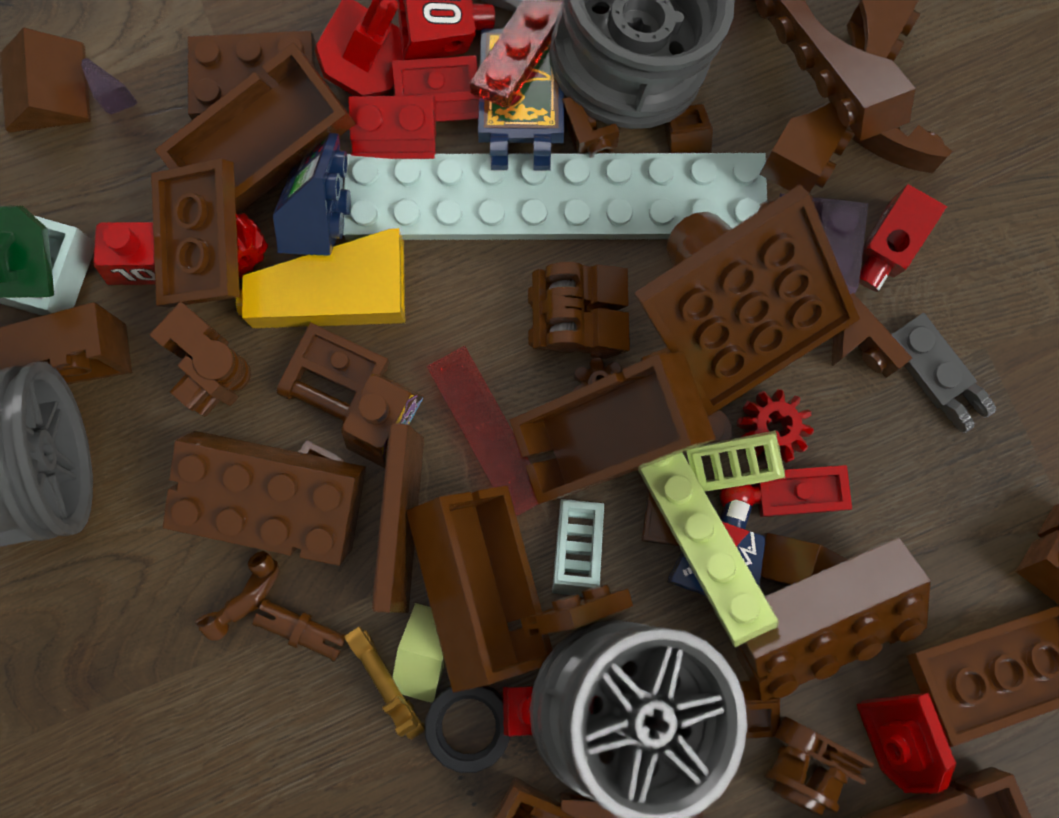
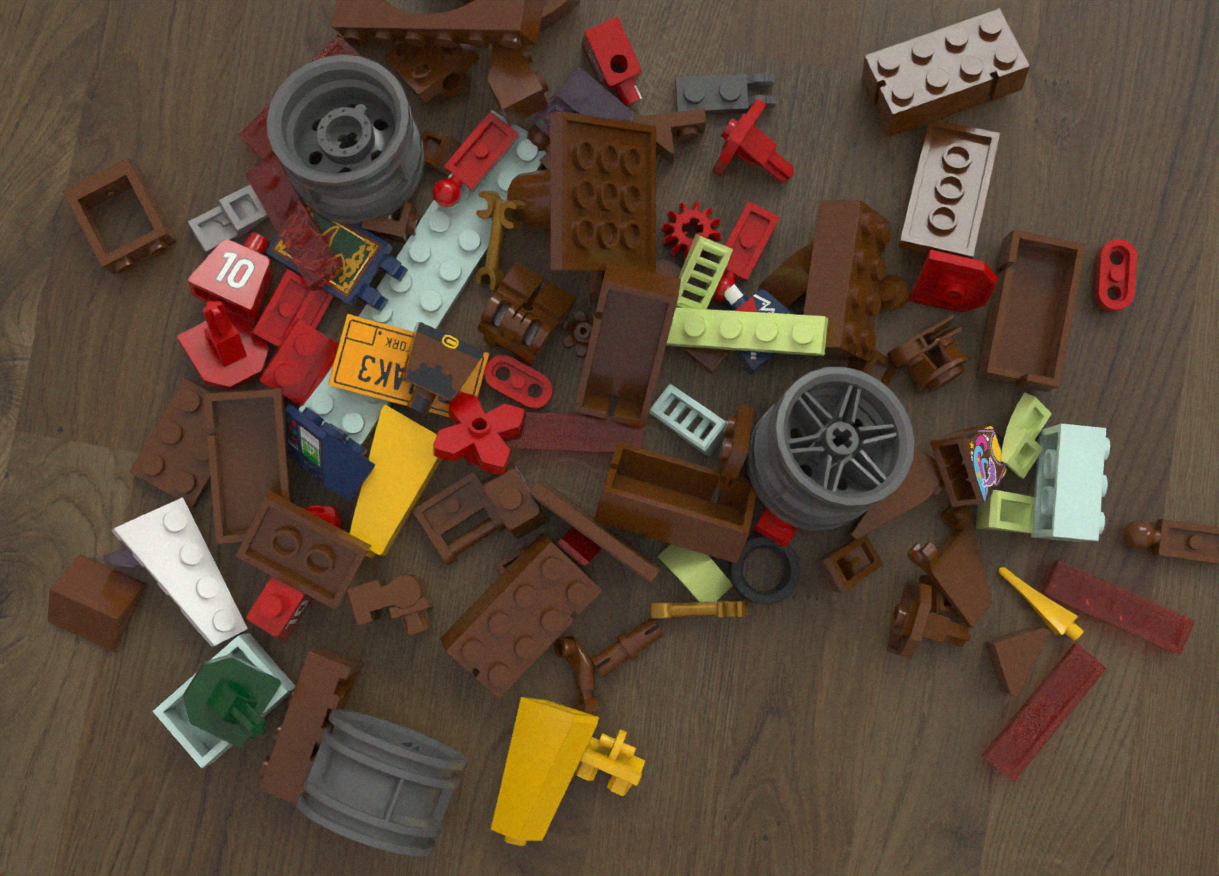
camera: 60 degrees left, 5 degrees up
(118, 615) = (539, 767): none -> yellow slope
(123, 131) = (181, 563): none -> white wing
(170, 686) = (613, 758): none -> yellow hips
(369, 513) = (579, 546): none -> red slope
(425, 337) = (478, 434): none -> red plant
(450, 230) = (373, 361): none -> light orange tile
(467, 253) = (437, 366): none -> torso
(507, 350) = (519, 382): none -> red plate
(665, 222) = (502, 217): none -> pearl gold bar
(703, 163) = (474, 159): none -> red plate
(769, 71) = (432, 68): none -> reddish brown plate
(853, 681) = (893, 293): none -> reddish brown plate
(907, 431) = (752, 146): none -> red piece

